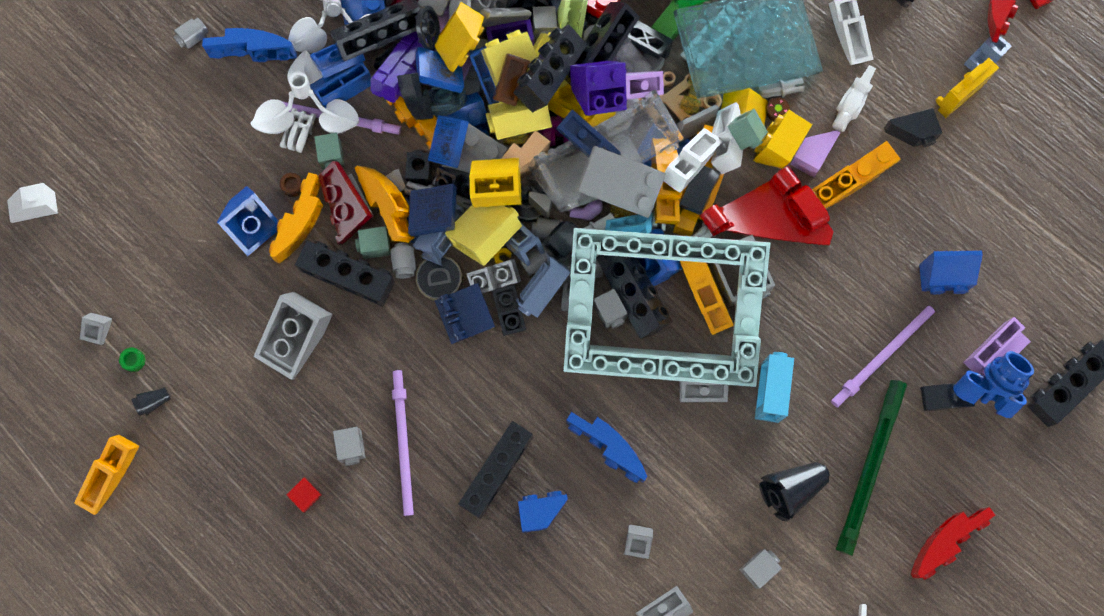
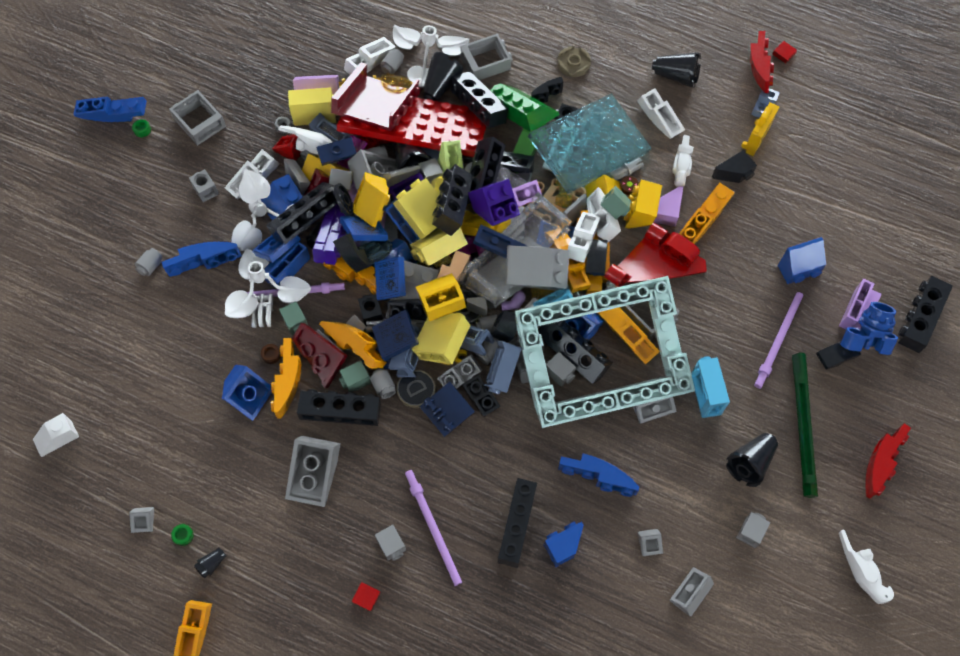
camera: 20 degrees left, 10 degrees down
(511, 71) = (423, 217): reddish brown tile -> none

